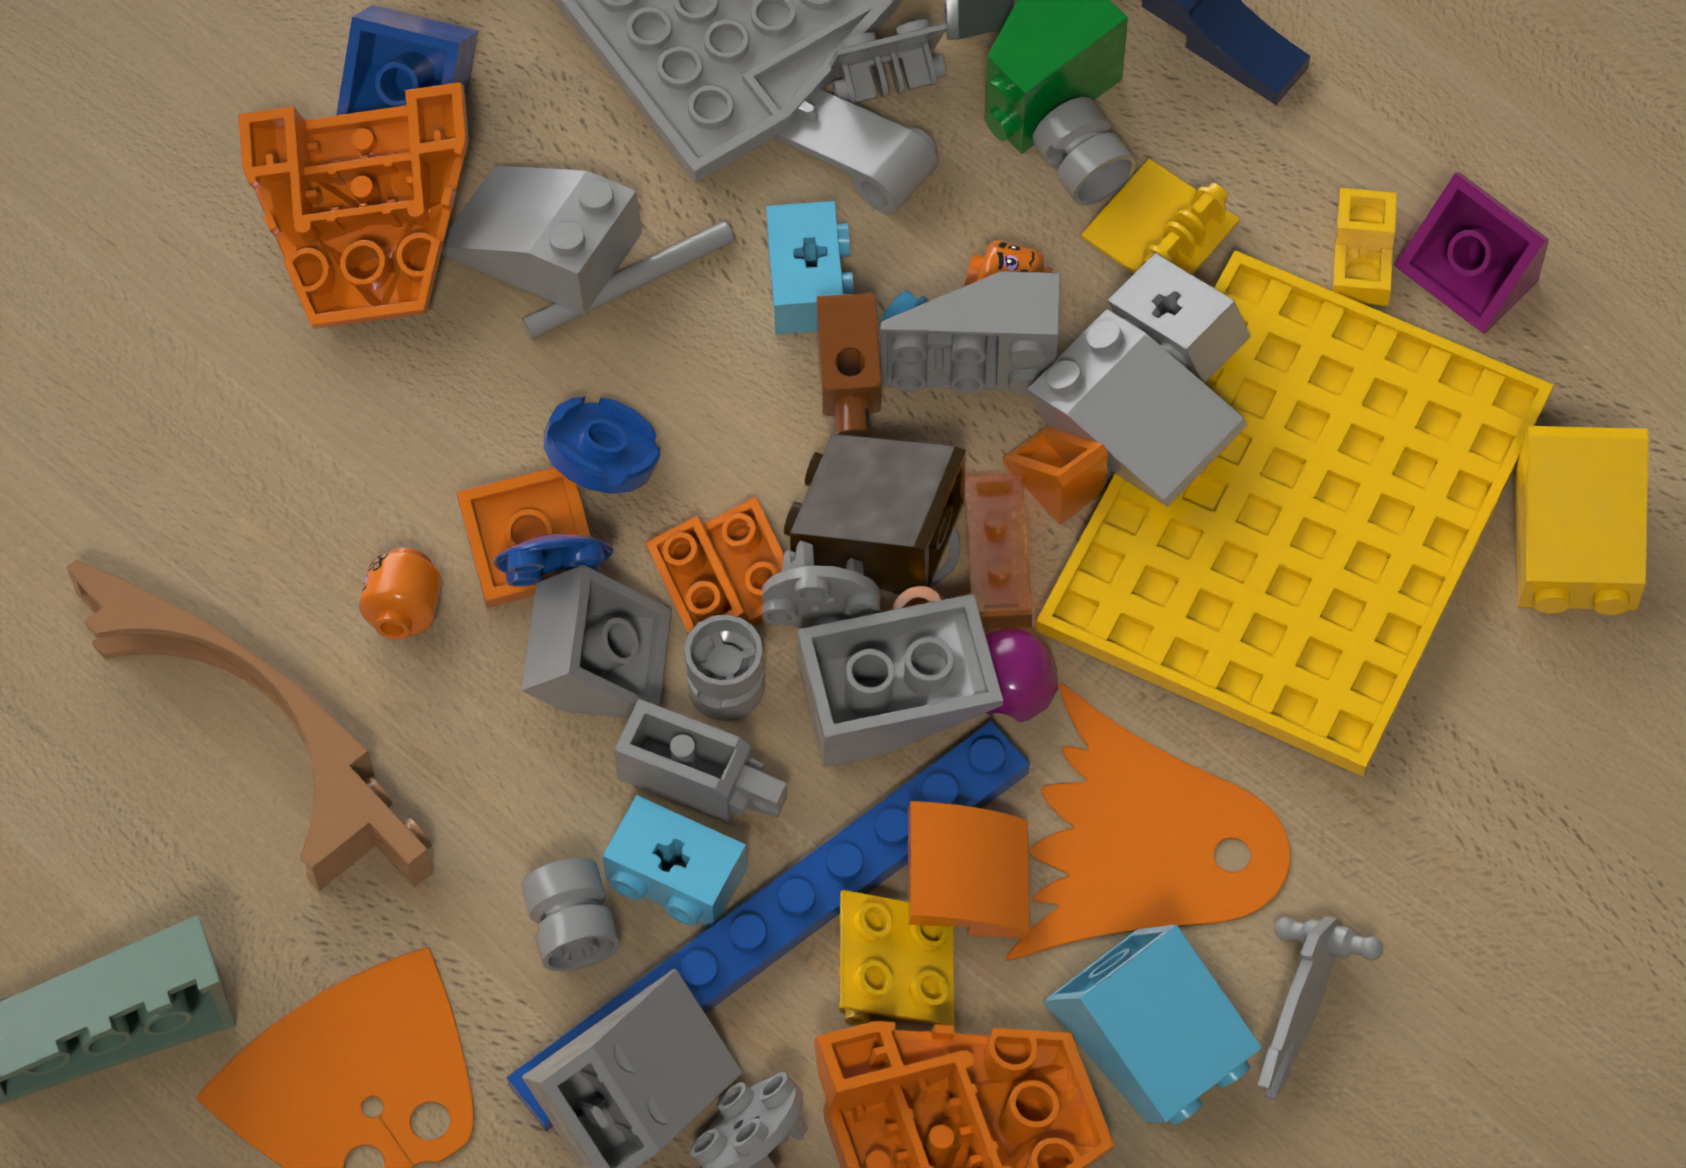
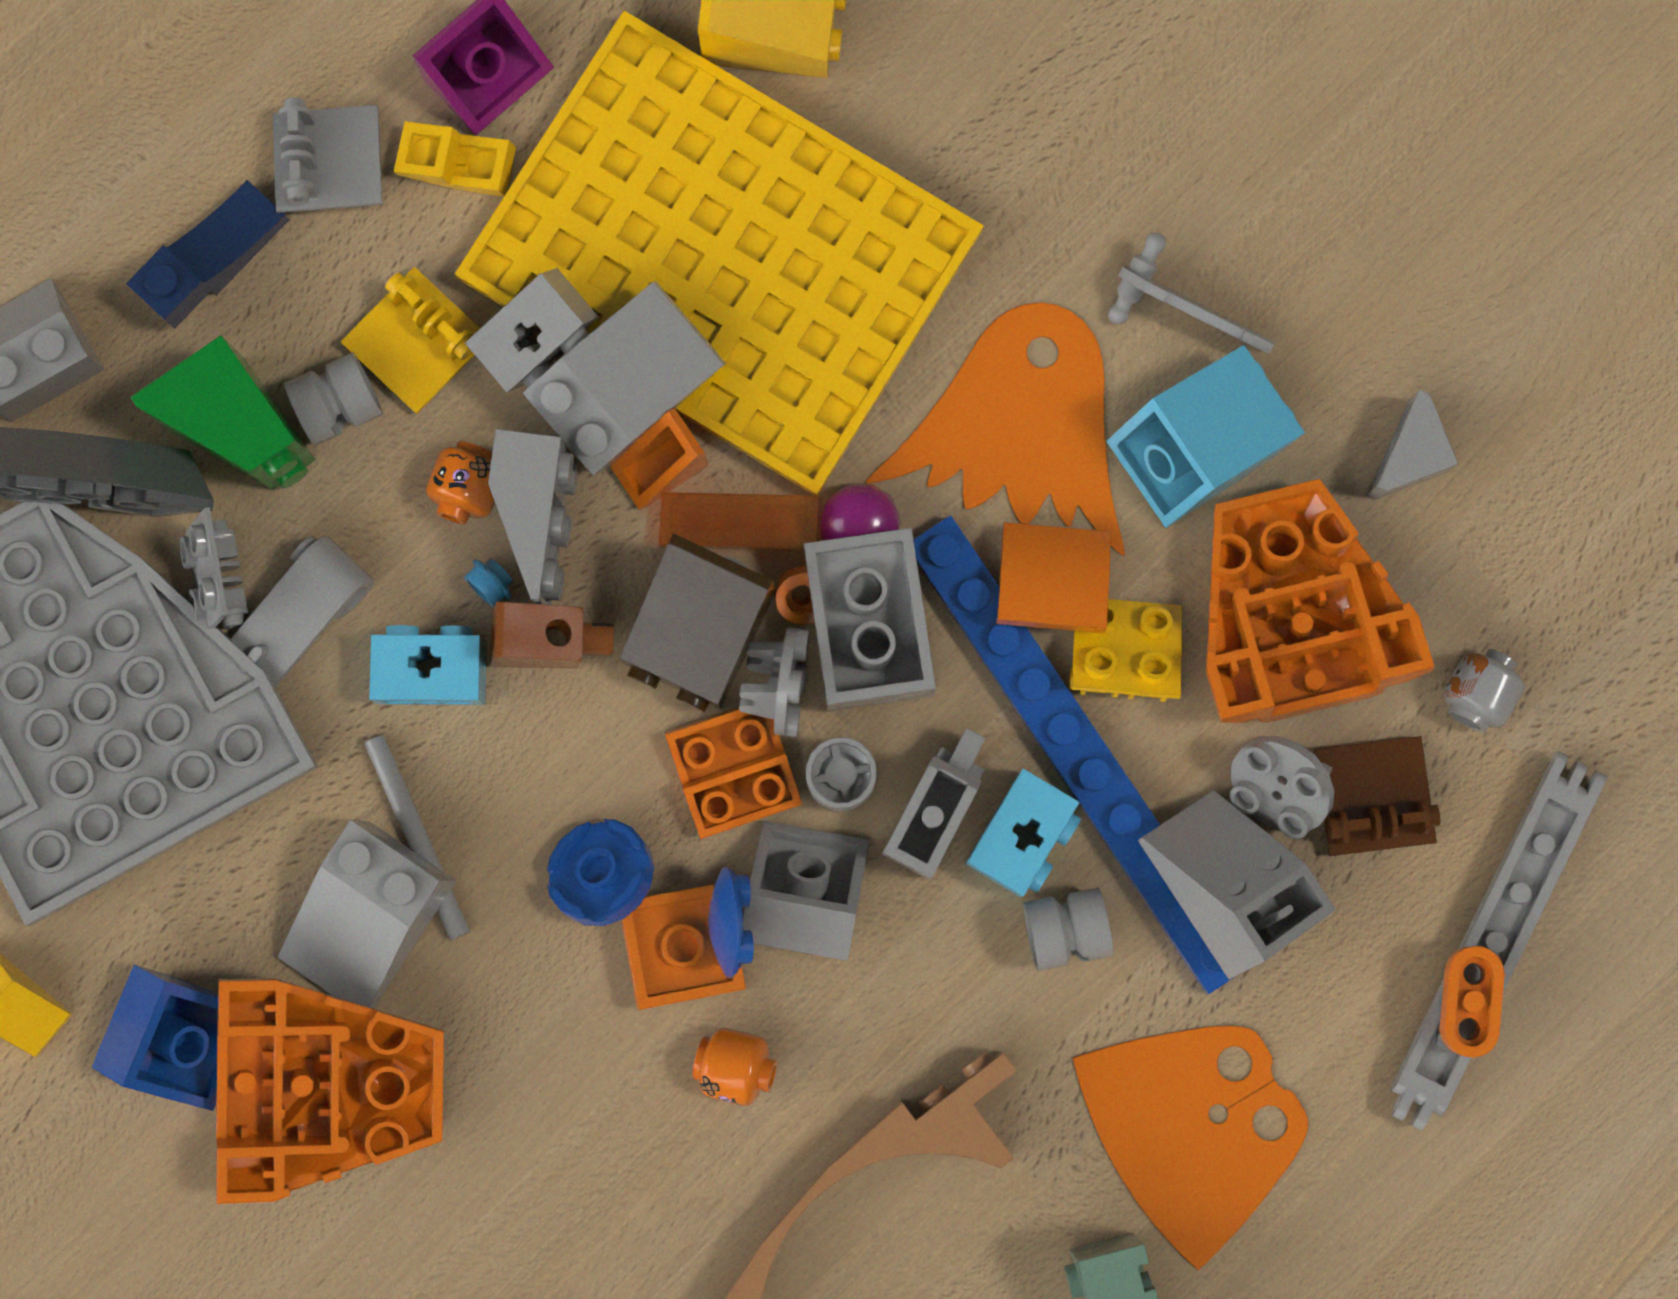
camera: 85 degrees left, 20 degrees up
(1346, 125) = (326, 157): none -> light grey hinge

